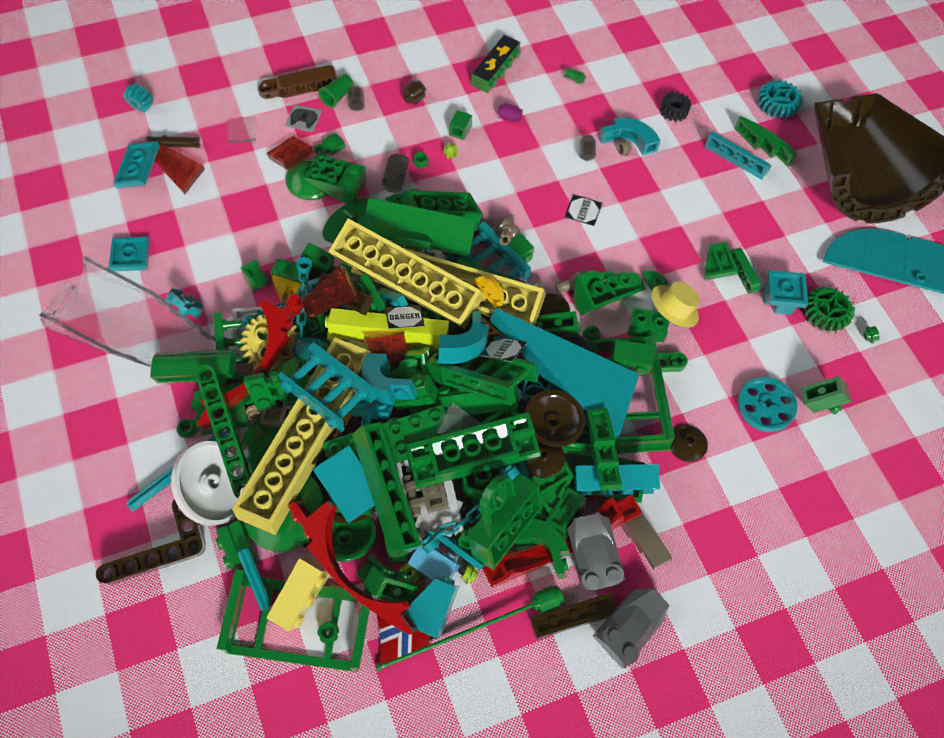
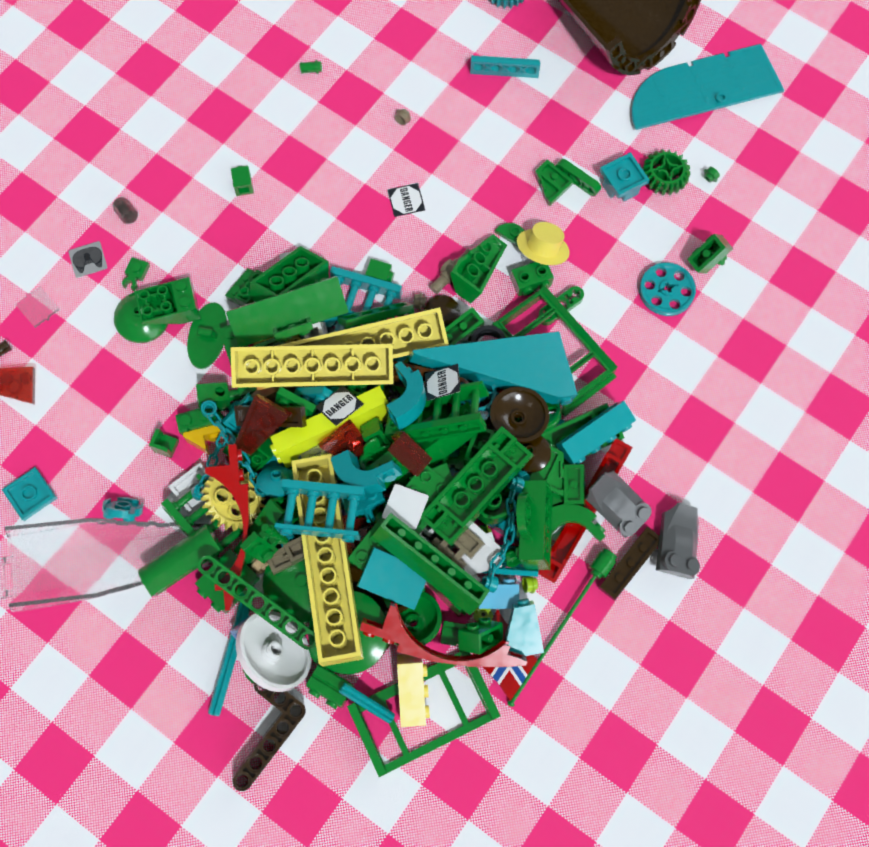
camera: 30 degrees left, 10 degrees up
(182, 425) = (203, 617): green plate -> none
(290, 152) = (105, 303): clear red plate -> none
(297, 82) = (58, 226): reddish brown piece -> none
(328, 626) = (454, 710): green plate -> none
(335, 90) = (100, 214): green plant -> none
(395, 173) = (217, 265): clear smoke piece -> none
(401, 429) = (406, 505): none -> white sticker
(414, 92) = (175, 172): dark brown head -> none
(420, 160) = (230, 234): green plate -> none
(432, 386) = (409, 453): none -> clear red panel
(451, 150) = (251, 212): lime plate -> none
(456, 420) = (445, 470): clear piece -> none
(491, 290) = (396, 335): yellow plate -> none
(496, 63) = (230, 97): brick -> none
(506, 229) = (357, 261): dark tan pin -> none
(510, 112) = (278, 141): magenta brick -> none
(587, 148) = (371, 136): clear smoke brick -> none
(591, 329) = (490, 310): green plate -> none
(604, 449) = (575, 416): green slope -> none
(632, 130) = (401, 95): teal arch -> none
(633, 356) = (543, 318): green brick -> none
(646, 541) = (646, 466): dark tan slope -> none
(678, 100) = (420, 39): black tyre -> none
(689, 451) = (630, 370): dark brown dish -> none
(766, 140) = (518, 36): green slope -> none

